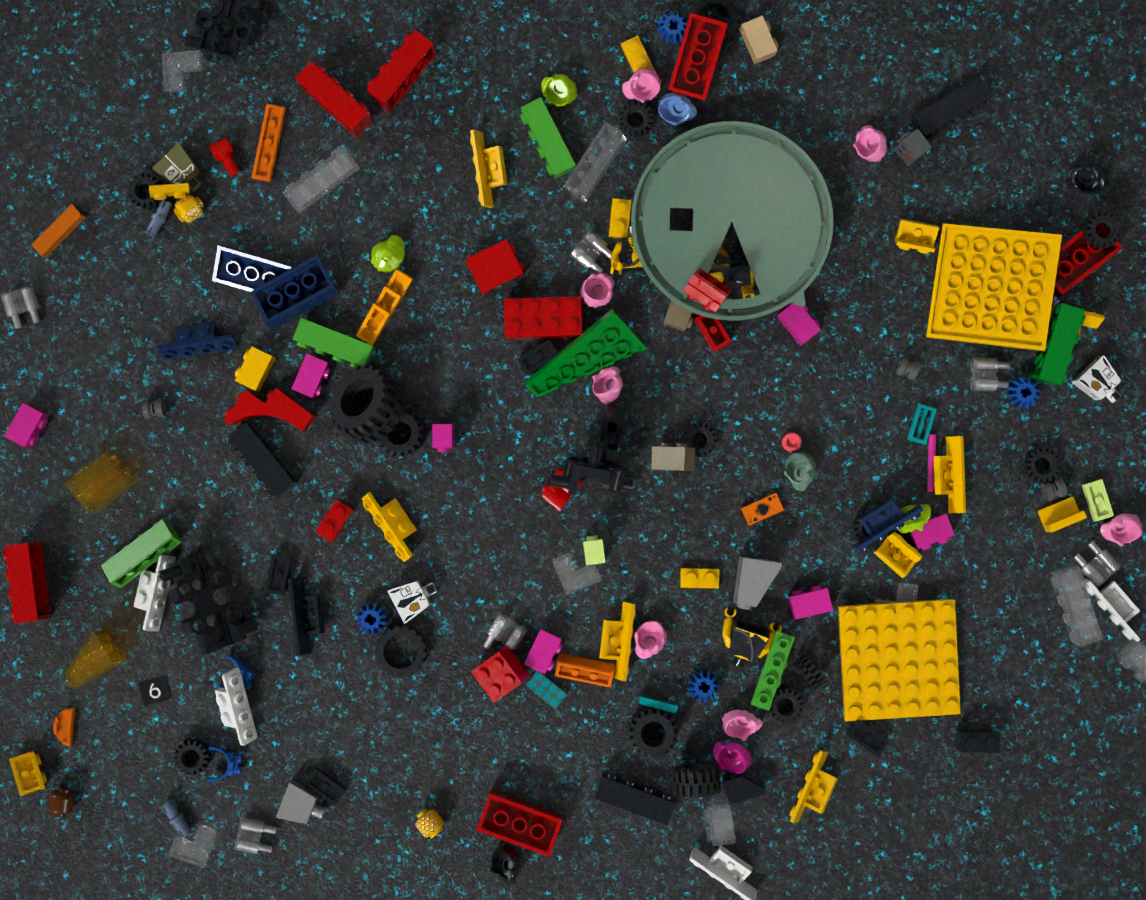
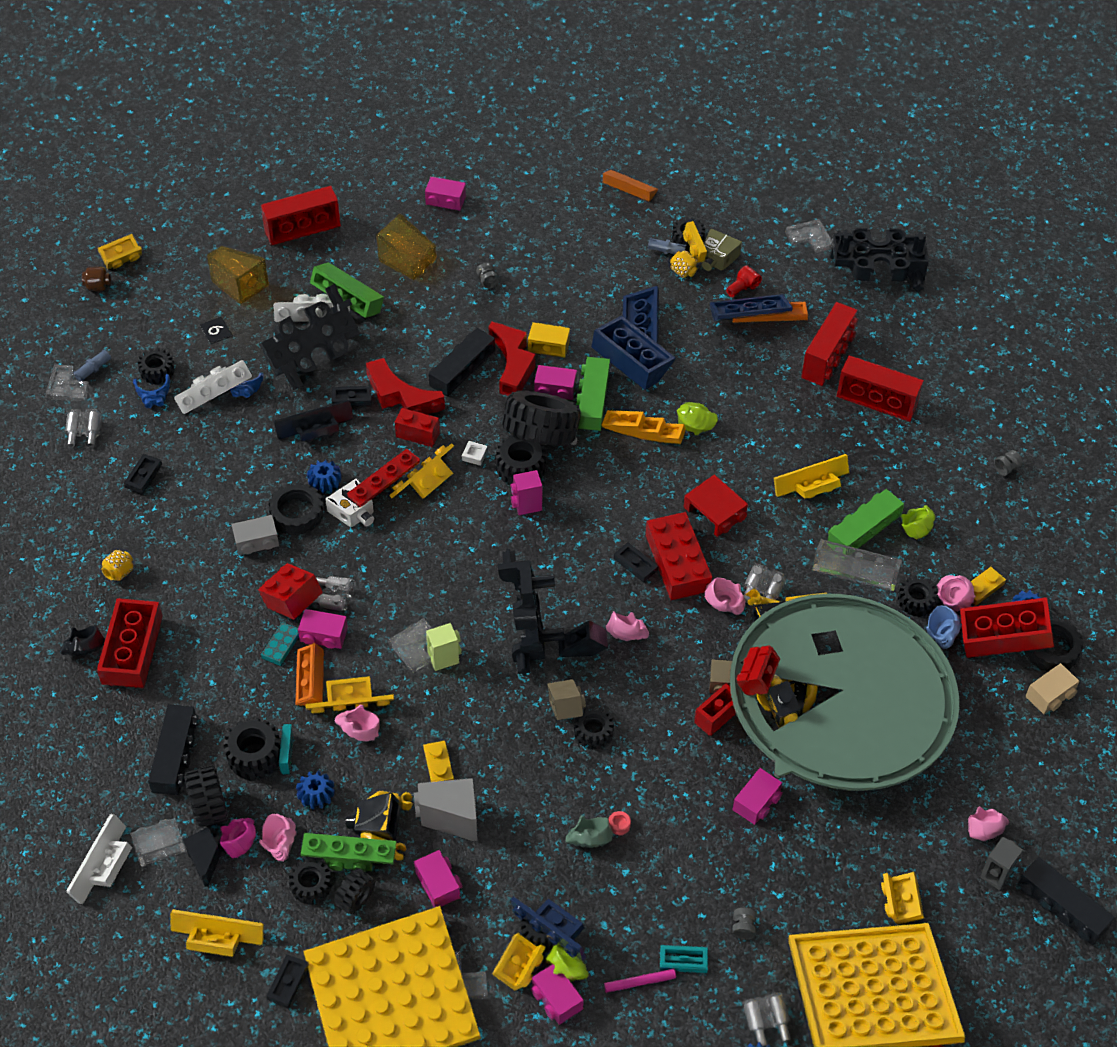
camera: 70 degrees right, 35 degrees down
(21, 301) = (555, 169): clear piece -> none
(64, 726) = (169, 271): orange tile -> none
(196, 340) = (560, 293): dark blue bracket -> none
(266, 161) = (750, 307): none -> dark blue slope
(283, 535) = (393, 391): none -> red arch
(299, 804) = (121, 454): light grey torso -> none
(320, 180) = (749, 353): clear brick -> none
(377, 473) = (474, 453): none -> white plate
(393, 564) = (383, 477): none -> red bracket
(425, 693) = (255, 535): none -> light grey brick
(555, 495) = (498, 610): red brick -> none
(590, 352) = (662, 607): green wing -> none
(762, 509) = (533, 809): orange tile -> none
(950, 474) = (631, 997): yellow bracket -> none

